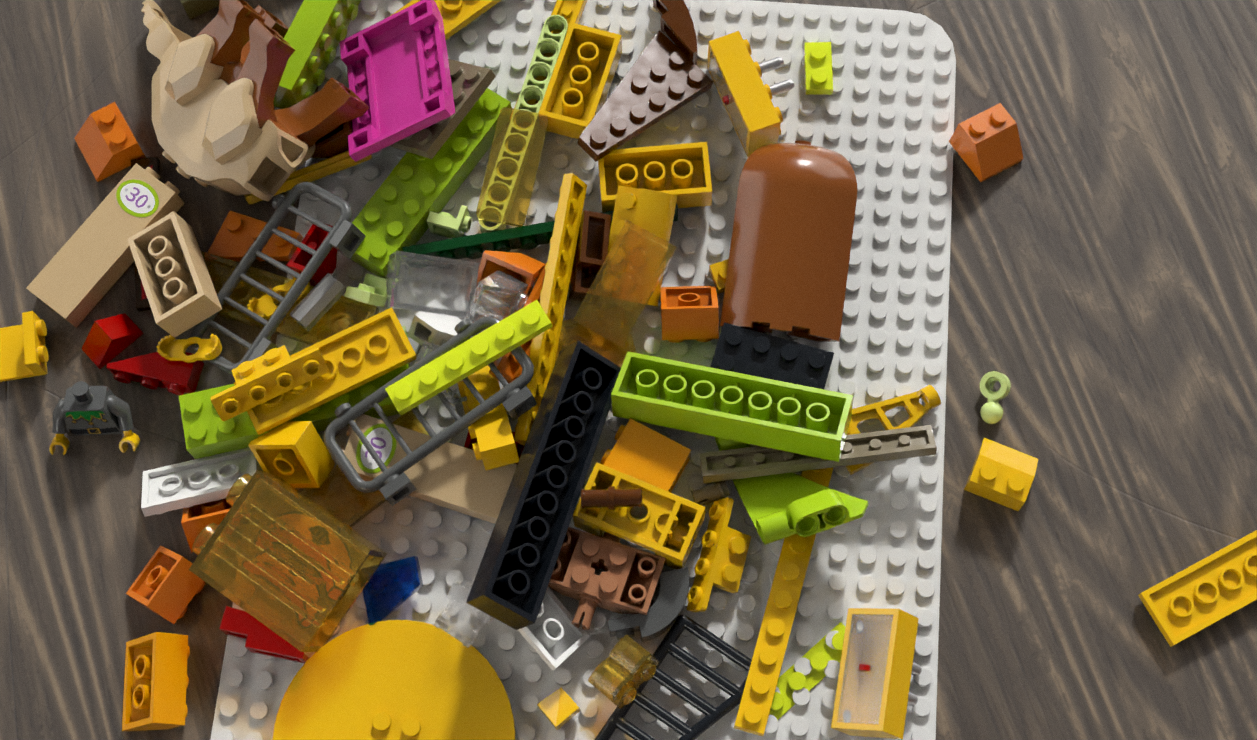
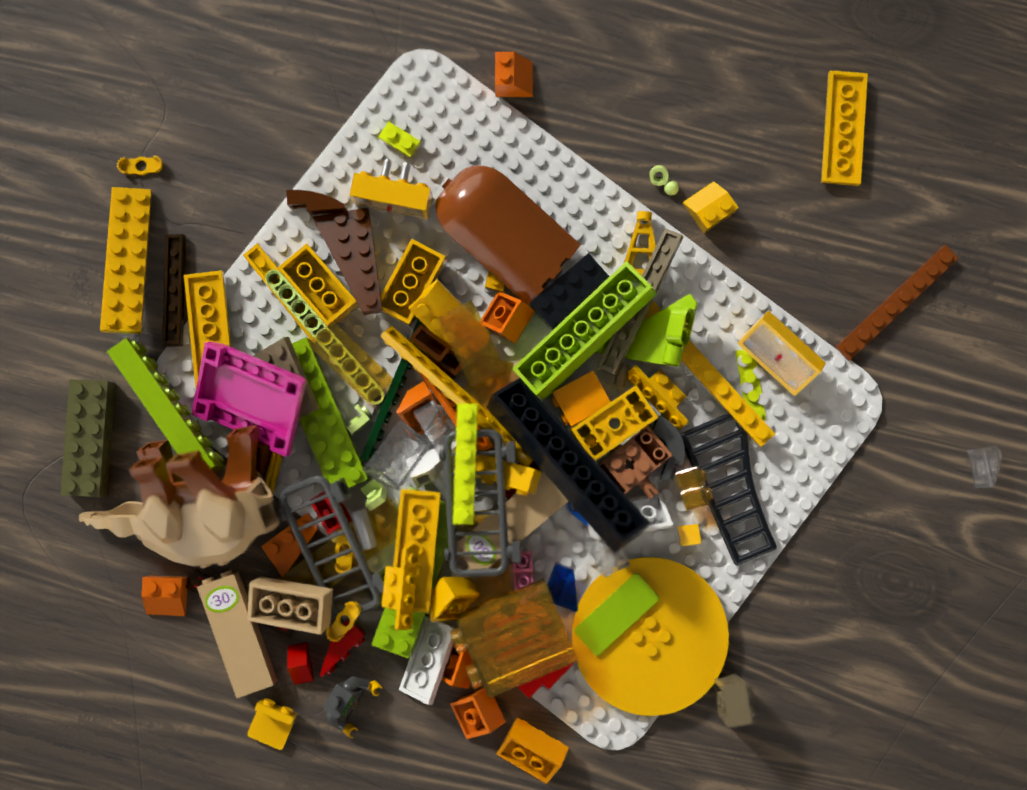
camera: 55 degrees left, 15 degrees up
(385, 524) = (523, 571): none -> bright pink slope
(396, 677) = (616, 614): none -> lime piece
(611, 498) = (600, 434): reddish brown pin -> none

